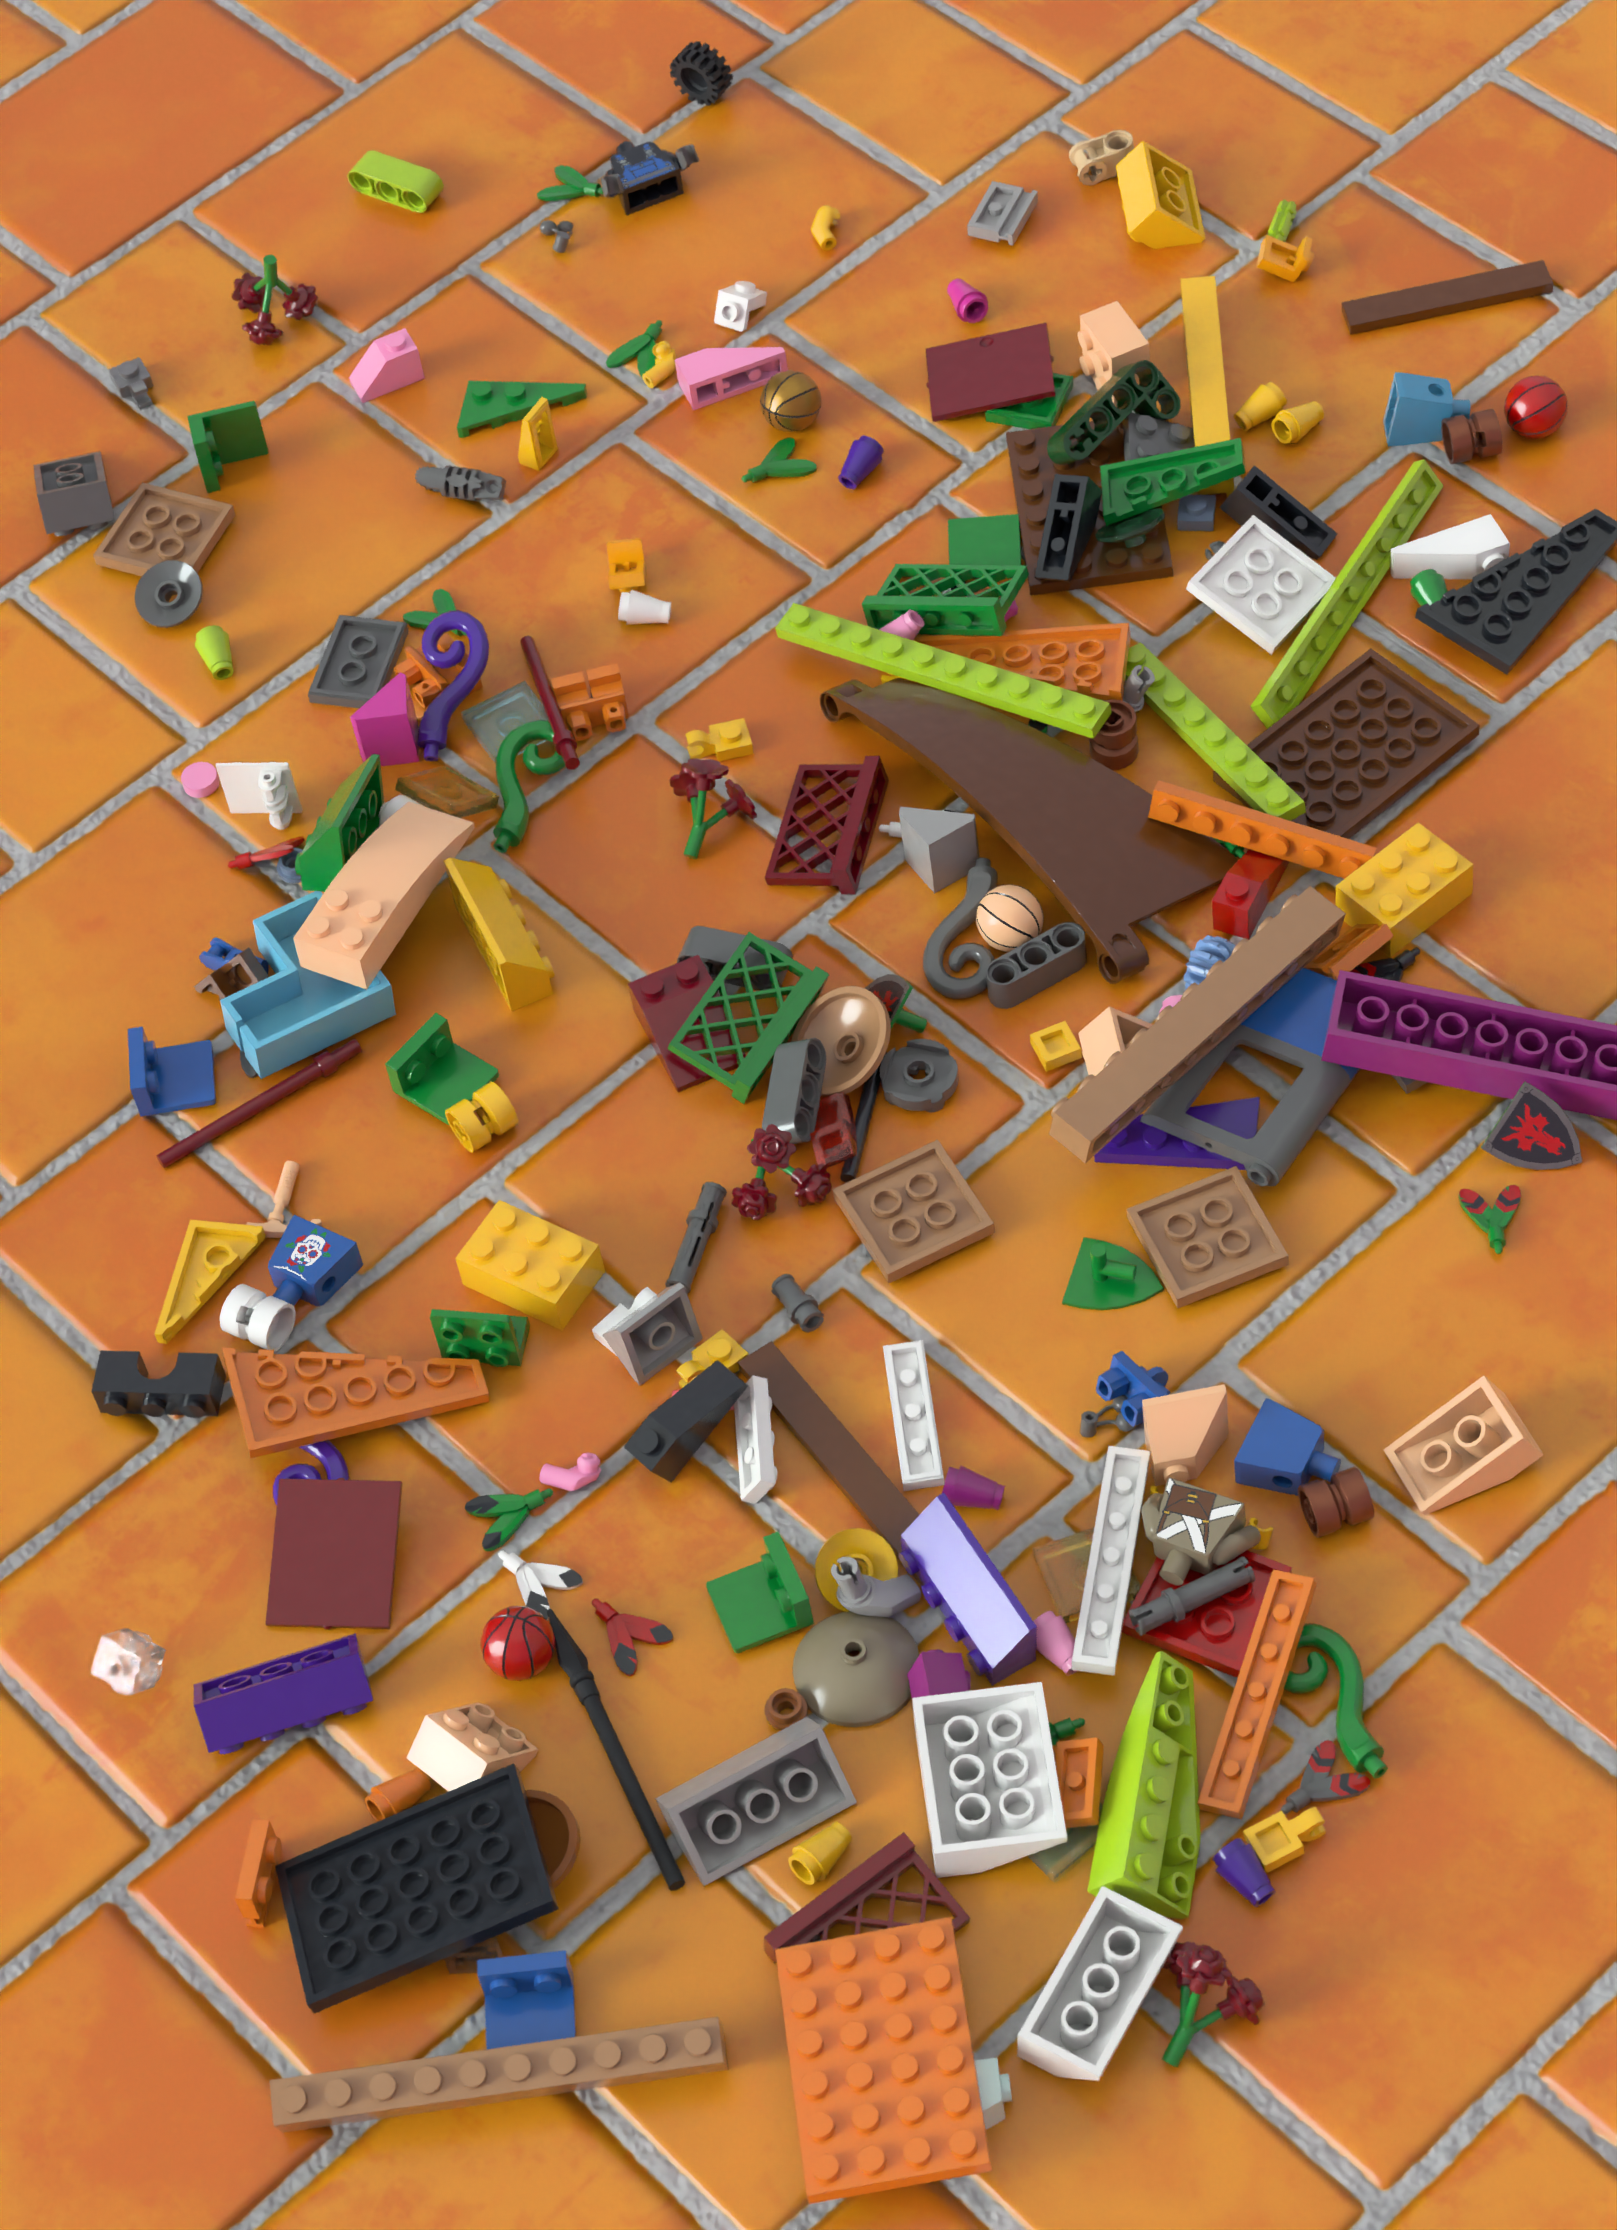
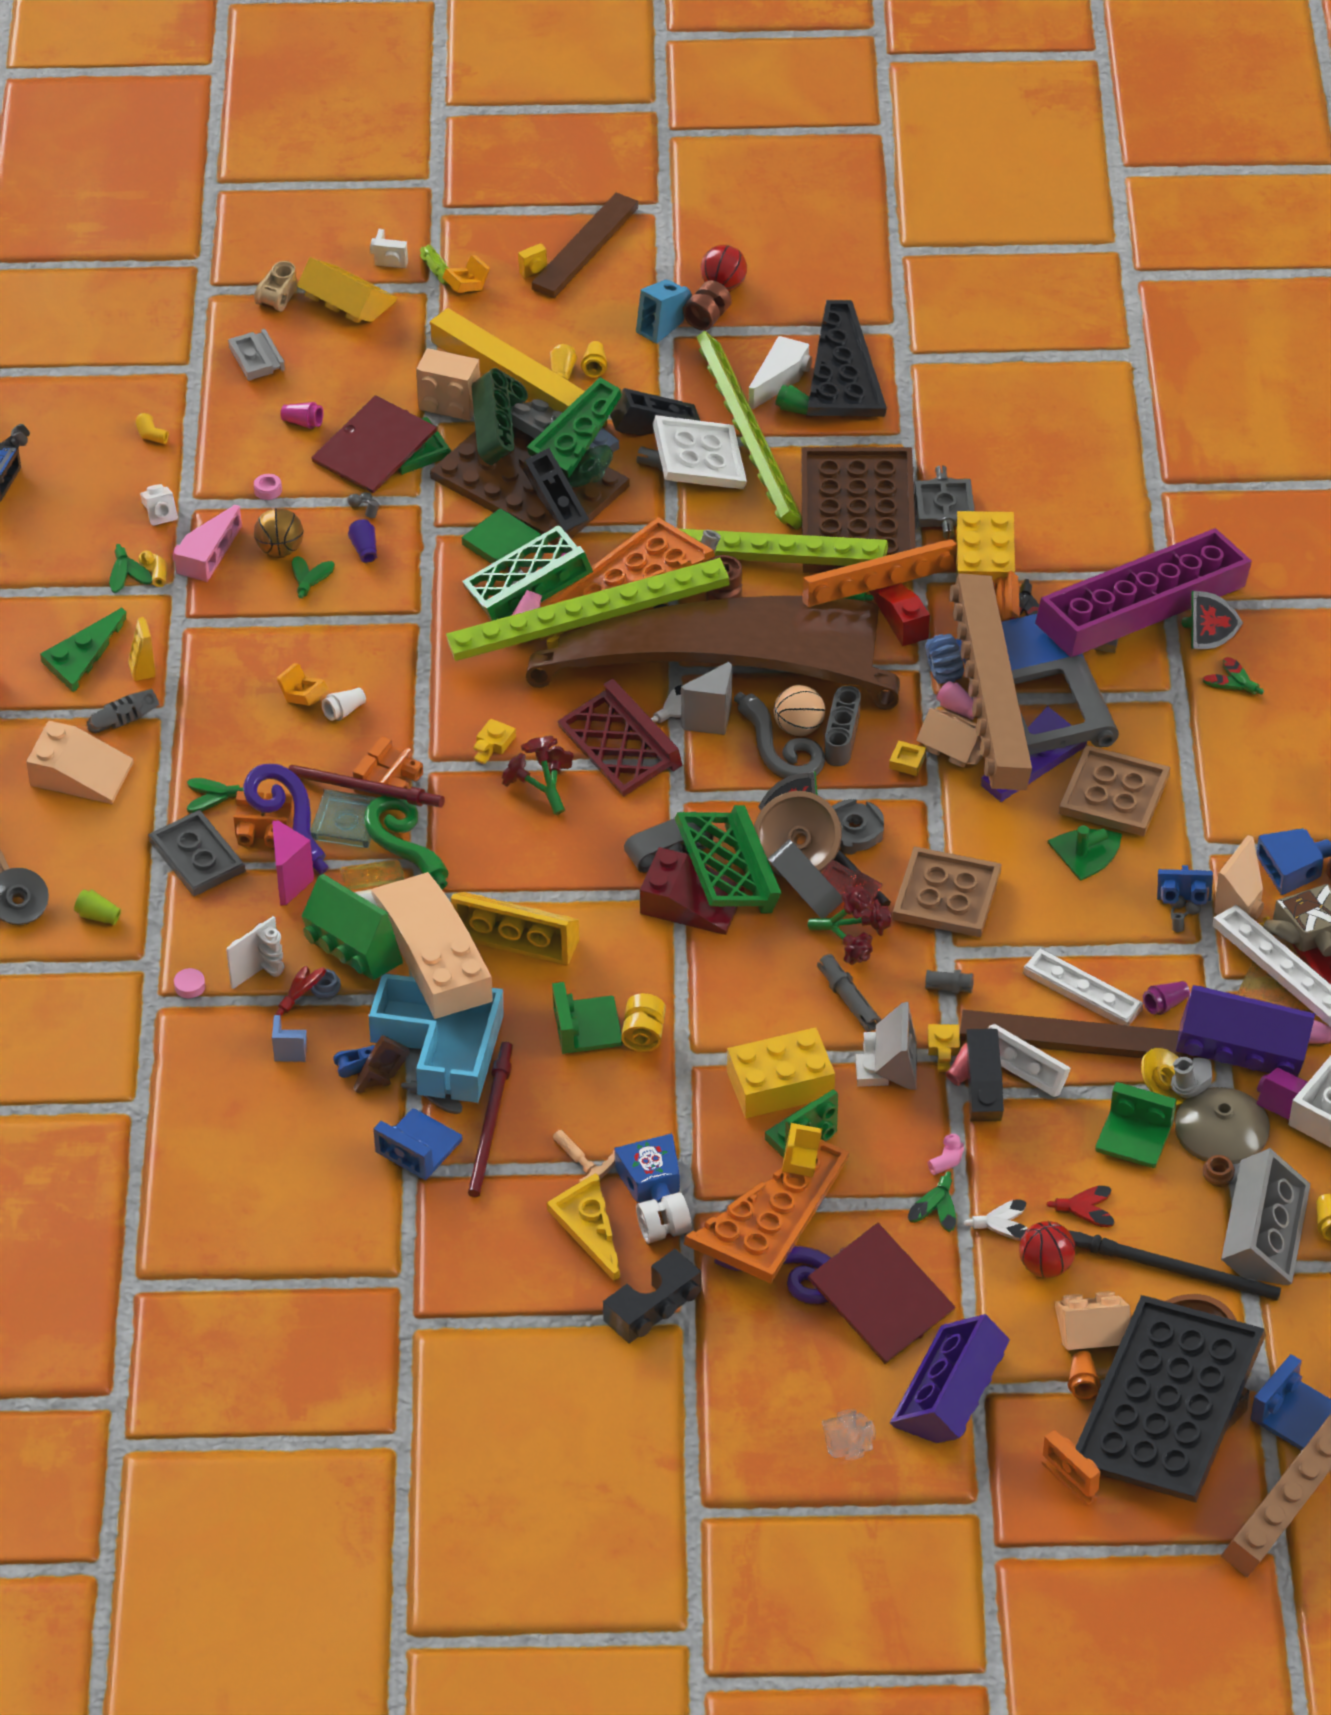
camera: 55 degrees left, 5 degrees down
(195, 894) = (288, 1044): none -> medium blue panel
(365, 505) = (77, 764): none -> light nougat slope
(424, 1352) = (801, 1150): none -> yellow panel
(853, 352) = (267, 486): none -> bright pink tile
(910, 434) = (373, 505): none -> dark grey piece
(1247, 184) = (389, 252): none -> white bracket
(1367, 279) = (532, 260): none -> yellow plate
(1443, 803) = (941, 499): none -> dark grey plate

